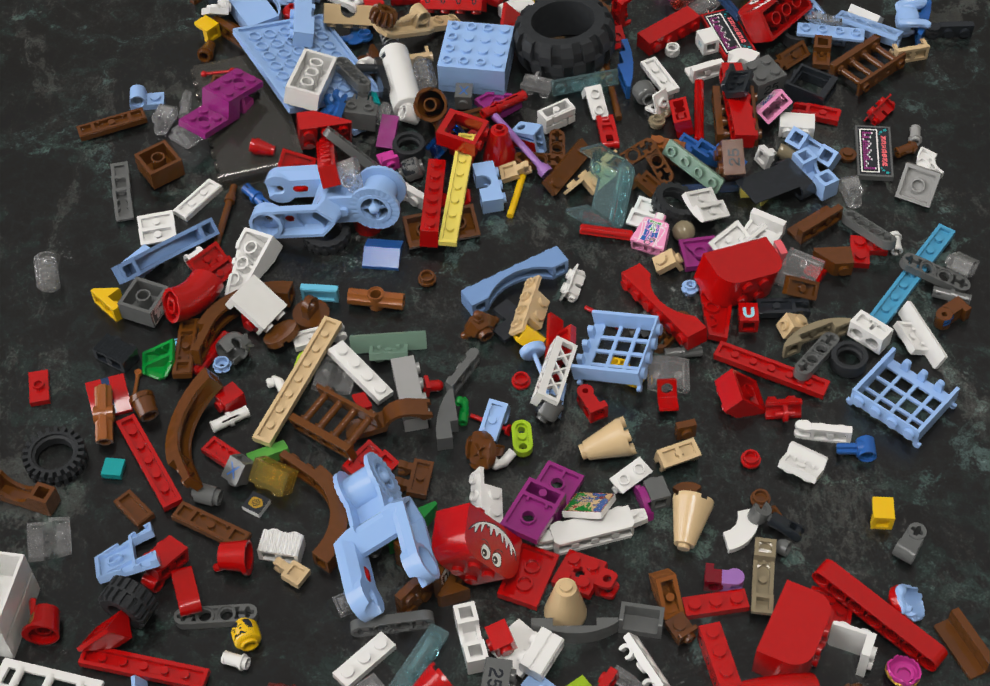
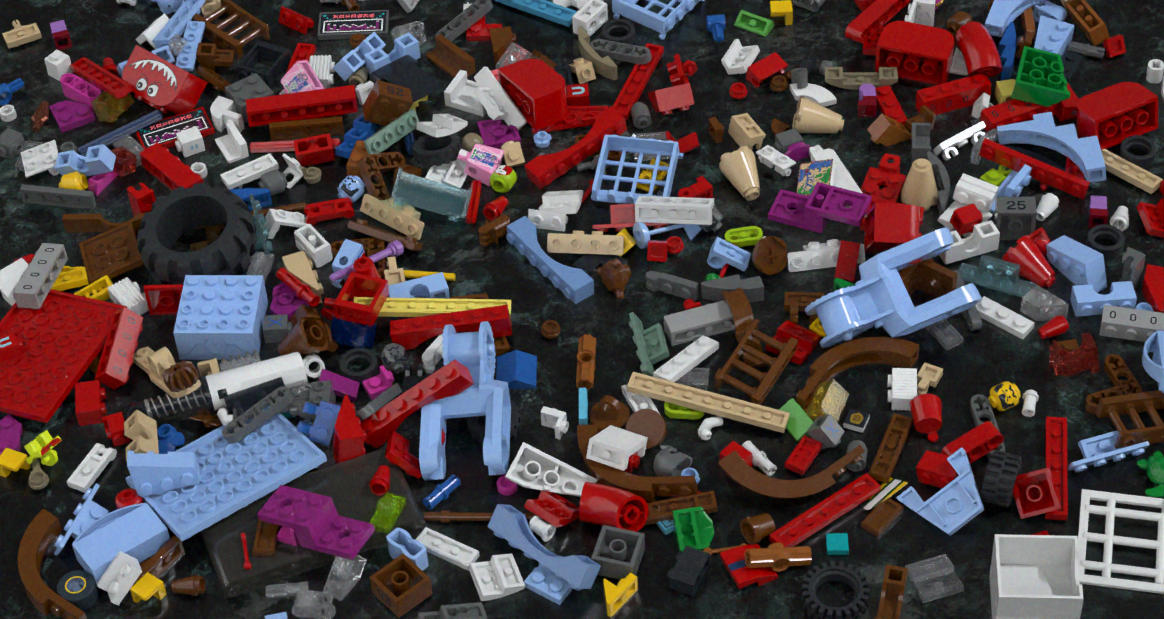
camera: 95 degrees left, 5 degrees down
(157, 514) = (886, 491): none -> sticker
(193, 168) = (400, 542): none -> light blue brick
(229, 152) = (387, 512): none -> clear neon green tile
(310, 80) = (282, 436): white brick -> none
(312, 274) = (554, 419): none -> white bracket
(350, 174) = (444, 357): clear piece -> none
(362, 400) = (725, 351): red slope -> none
(513, 363) = (657, 250): none -> red tile
(524, 110) = (301, 268): none -> tan slope
(562, 241) = (493, 230): none -> reddish brown arm
(591, 294) = (562, 201): none -> white slope
(593, 246) = (495, 208): none -> red cone
(628, 140) = (351, 187): none -> light blue head
(629, 251) = (503, 179): none -> lime head
(714, 367) = (640, 115): none -> dark grey brick
(736, 82) = (286, 93): black bracket -> none
(781, 486) = (765, 69): none -> red hinge
(823, 432) = (701, 54): white hinge -> none
(871, 485) = (754, 23): none -> bright green slope

